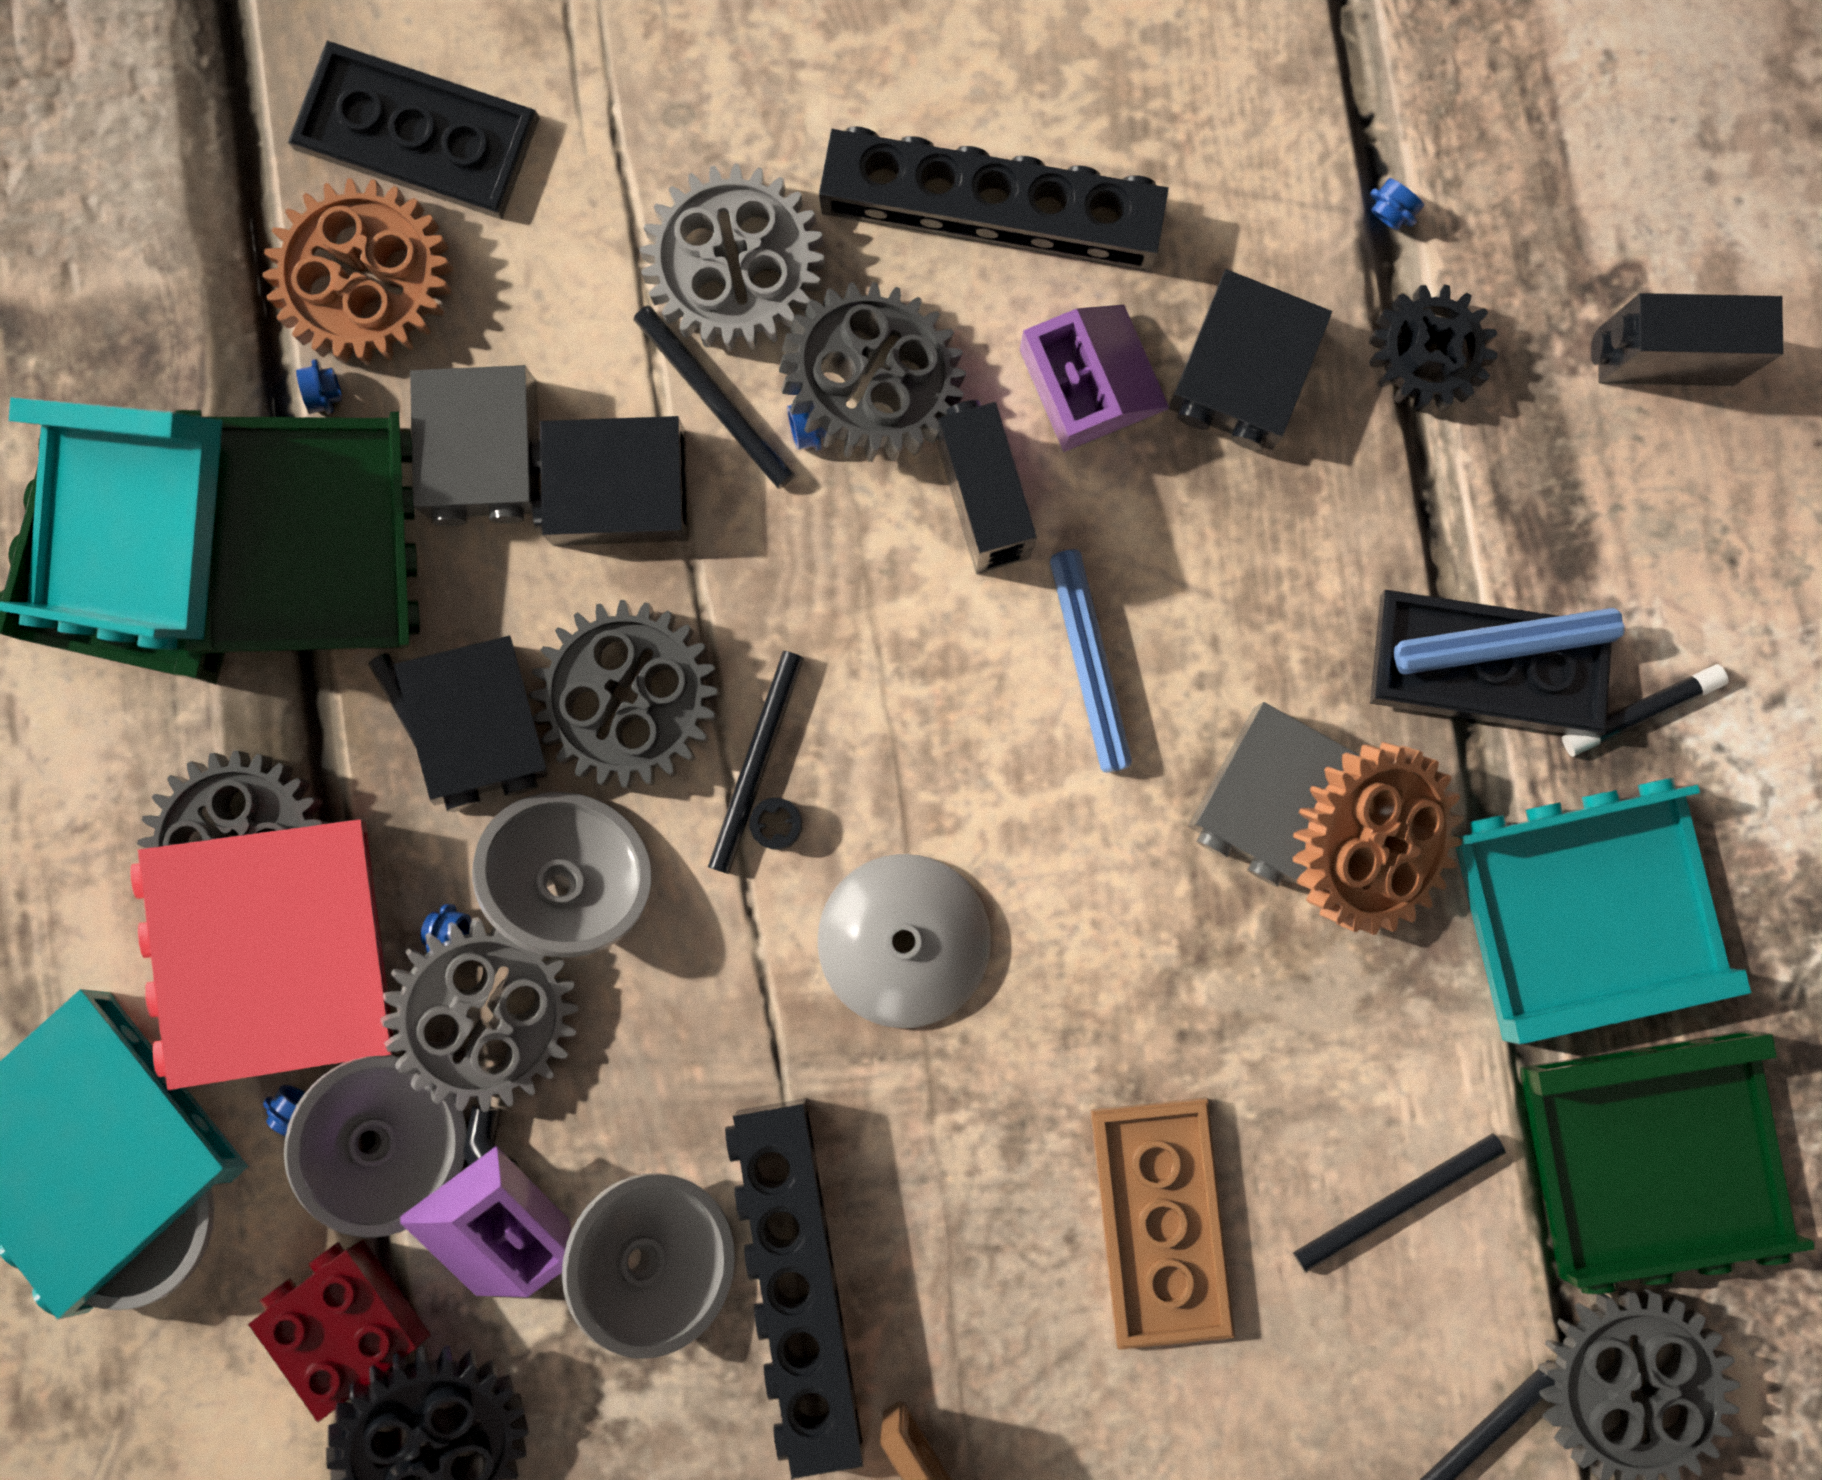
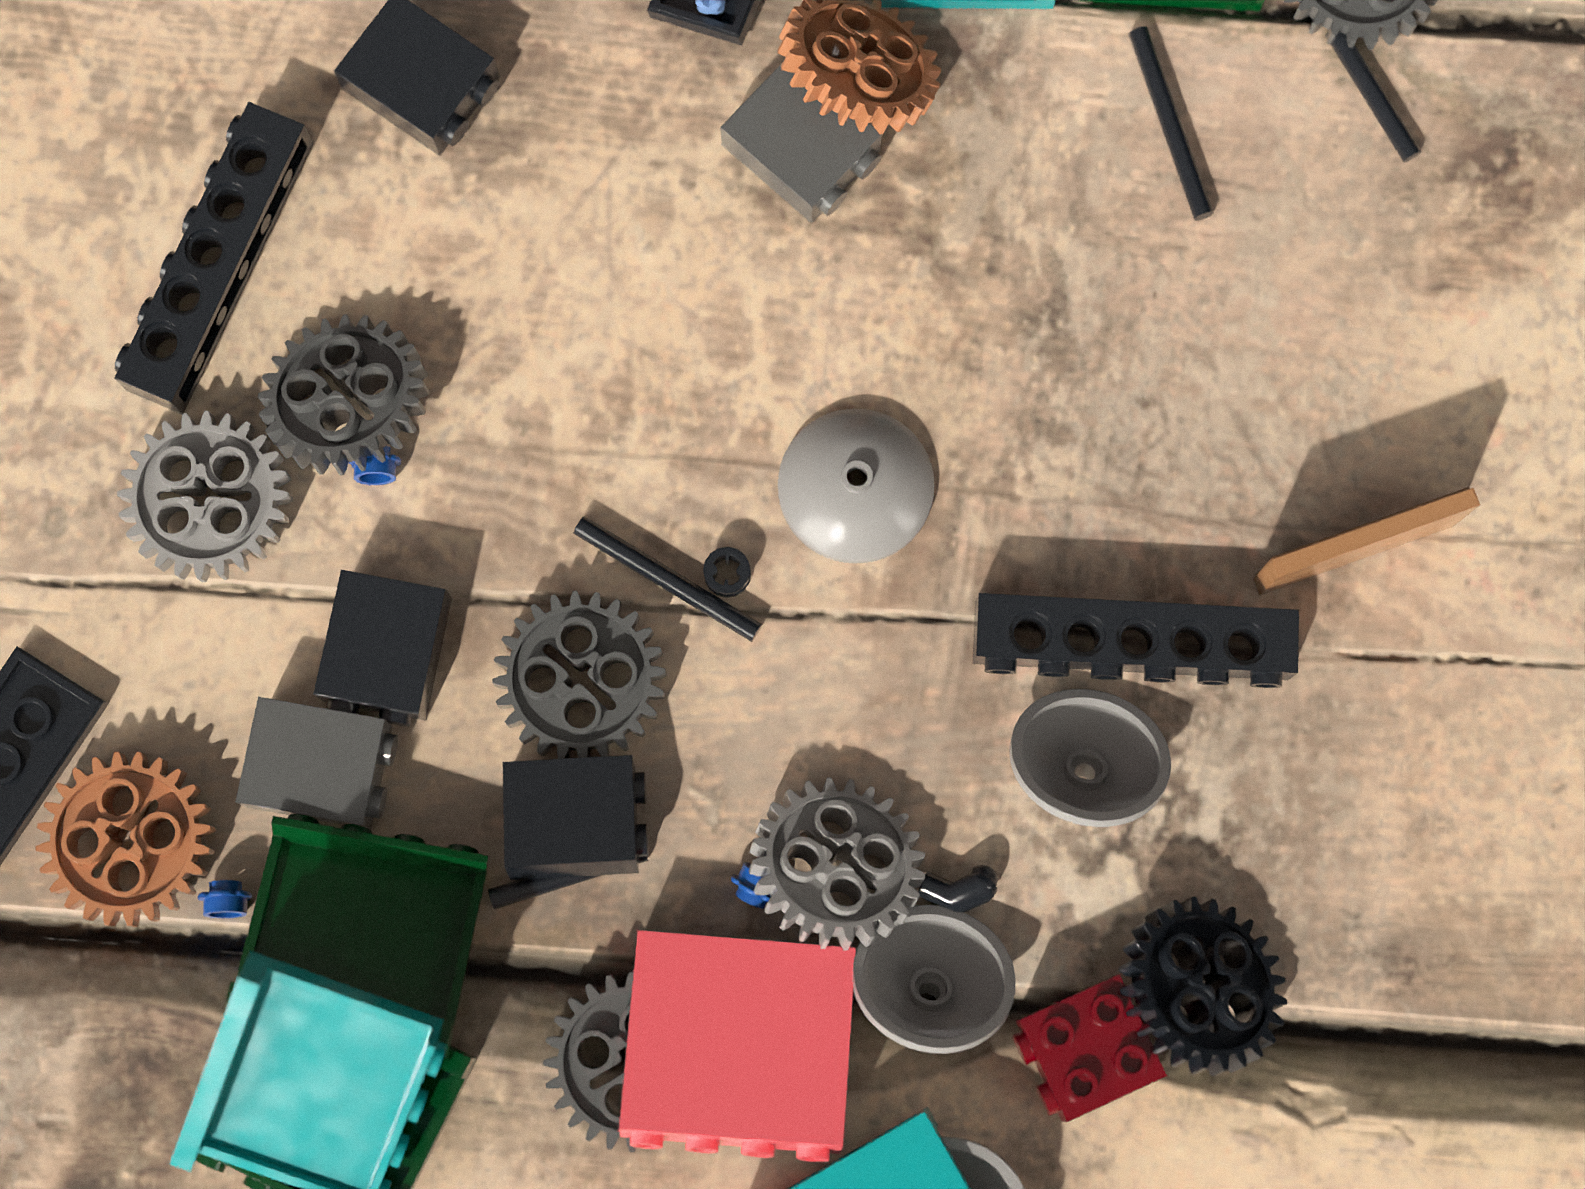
camera: 80 degrees left, 5 degrees down
(282, 1107) = (886, 1061): blue plate -> none
(492, 1229) = (1032, 891): medium lavender slope -> none
(568, 844) = (717, 743): light grey dish -> none
(713, 396) = (326, 544): black bar -> none
(985, 485) = (473, 316): black brick -> none
(1090, 661) = (647, 269): medium blue axle -> none
(1091, 373) = (395, 210): medium lavender slope -> none
(1162, 1223) = (1146, 321): medium nougat tile -> none

